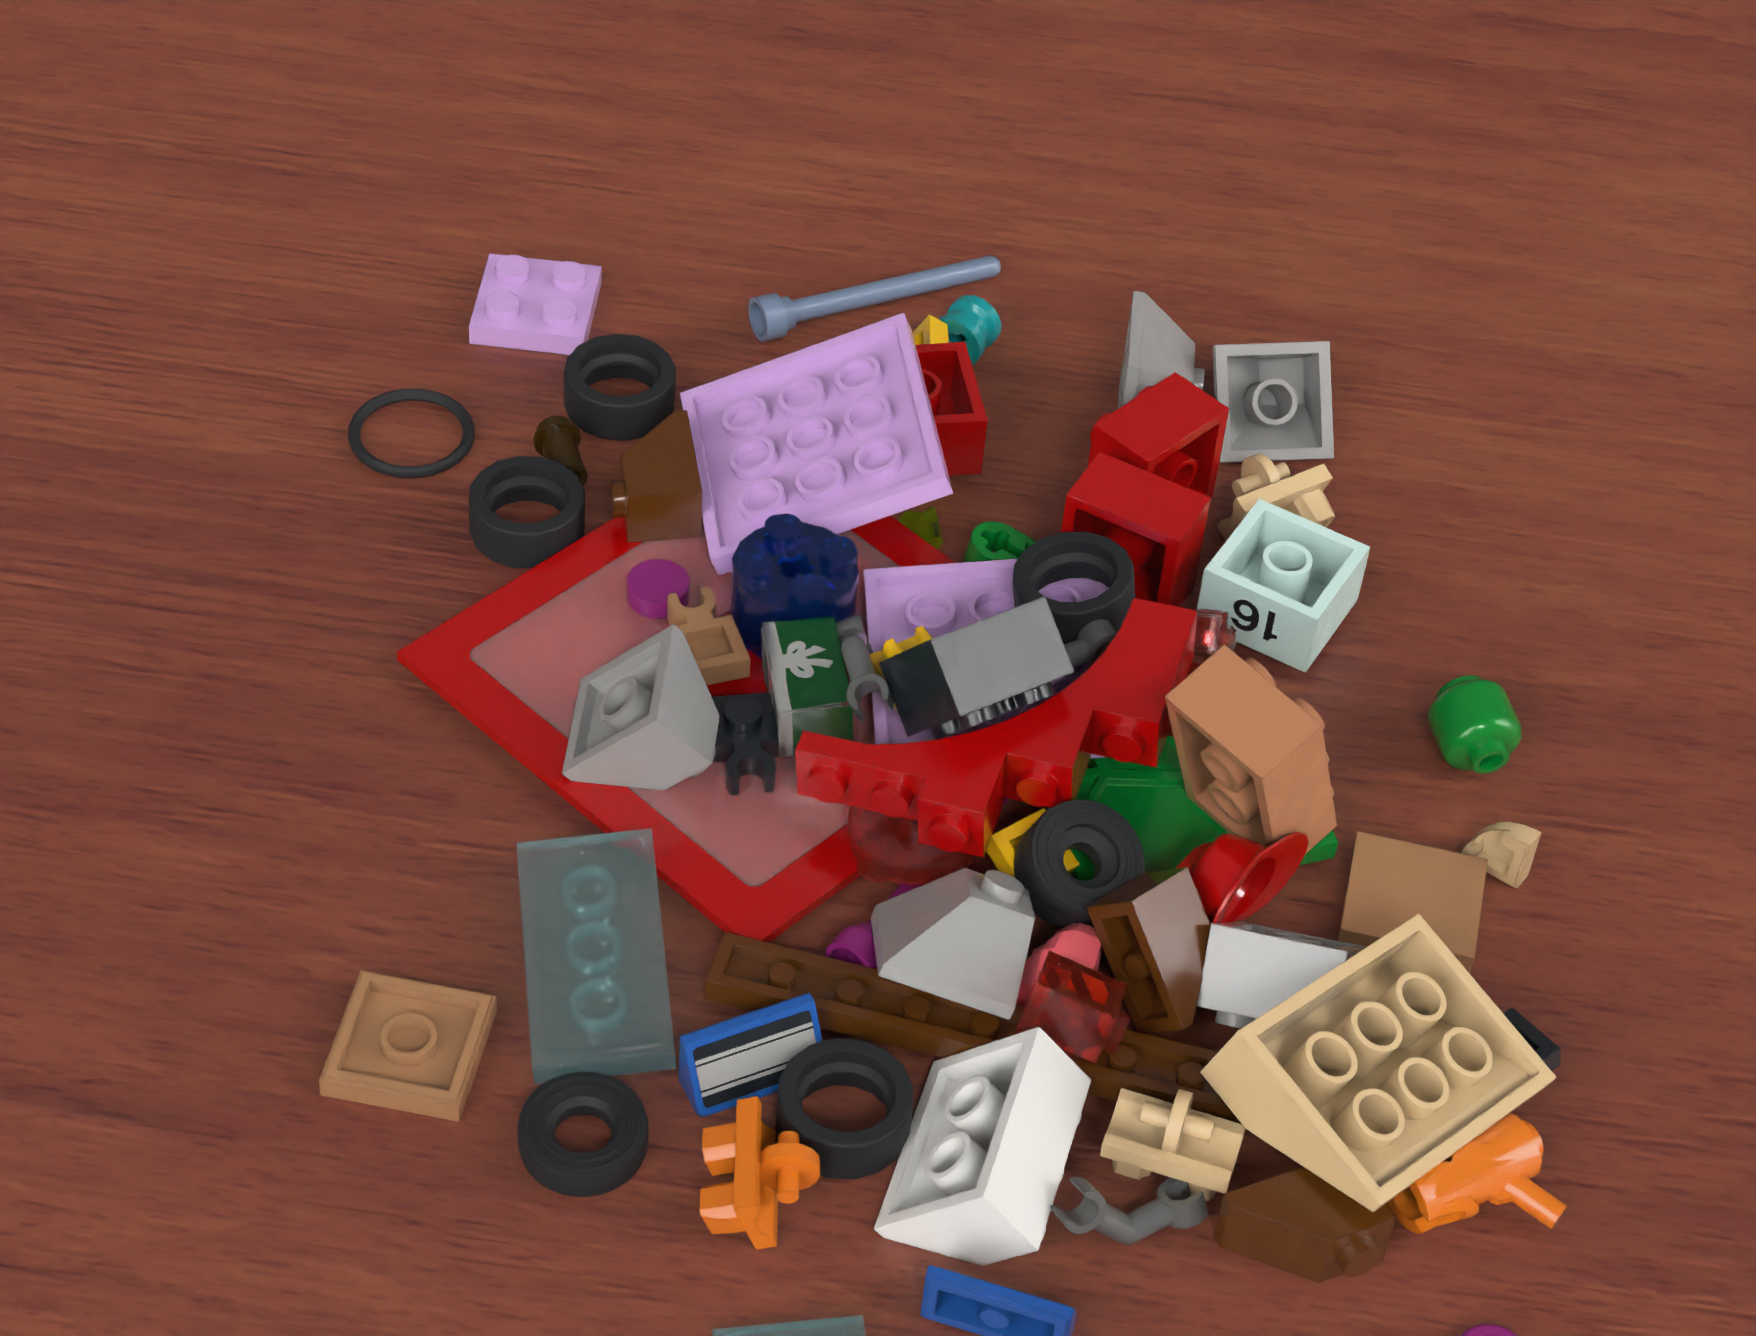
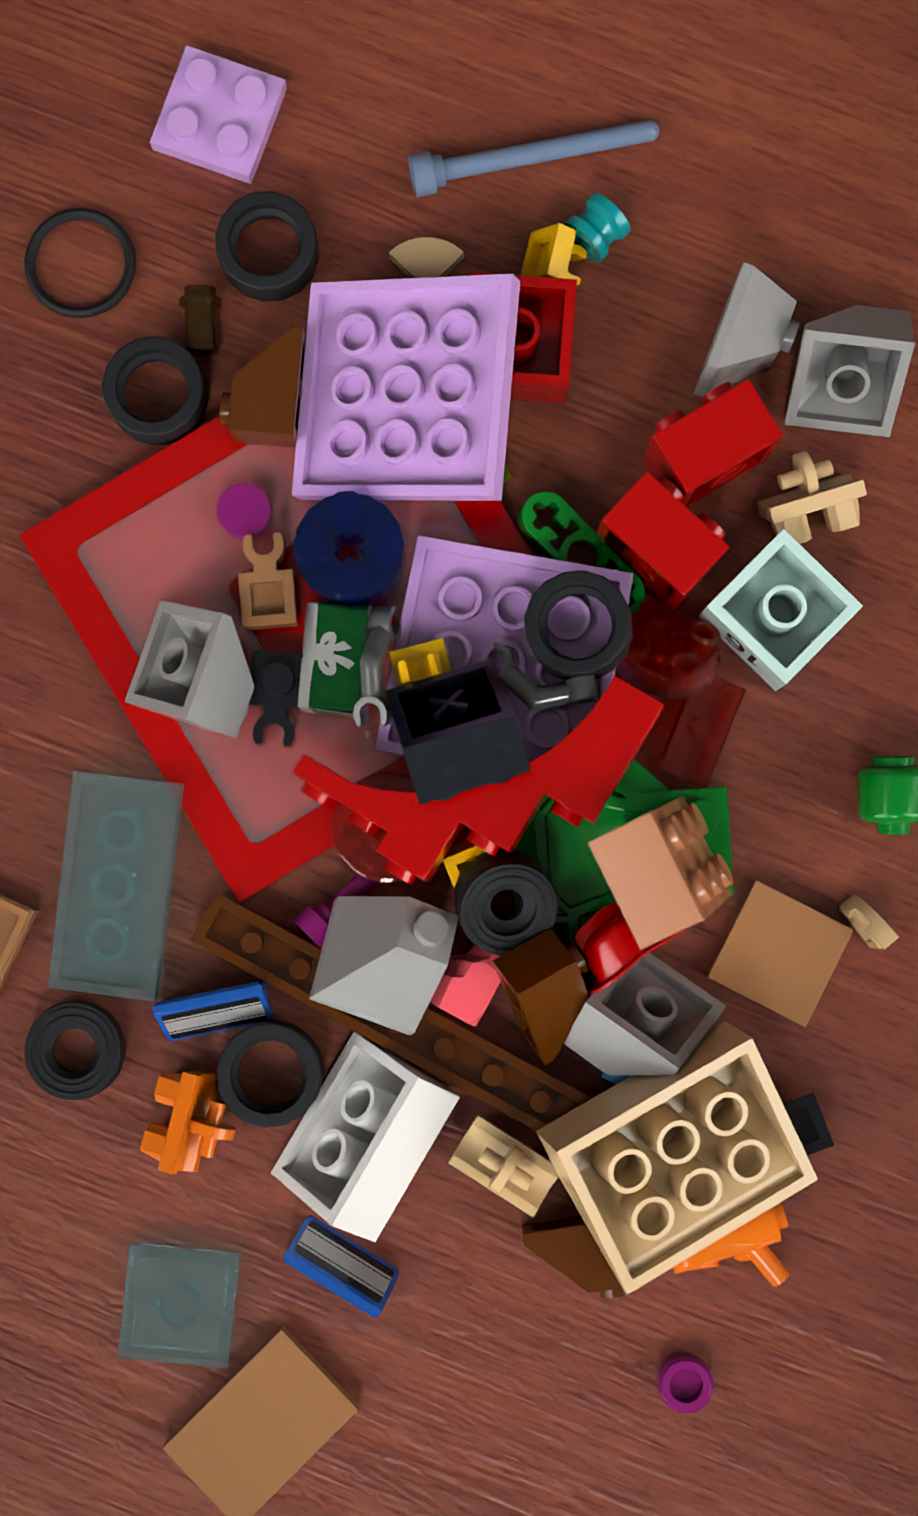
camera: 20 degrees right, 40 degrees up
(1076, 1008) = (472, 1041): clear red brick -> none
(1172, 1208) = (425, 1215): dark grey arm -> none

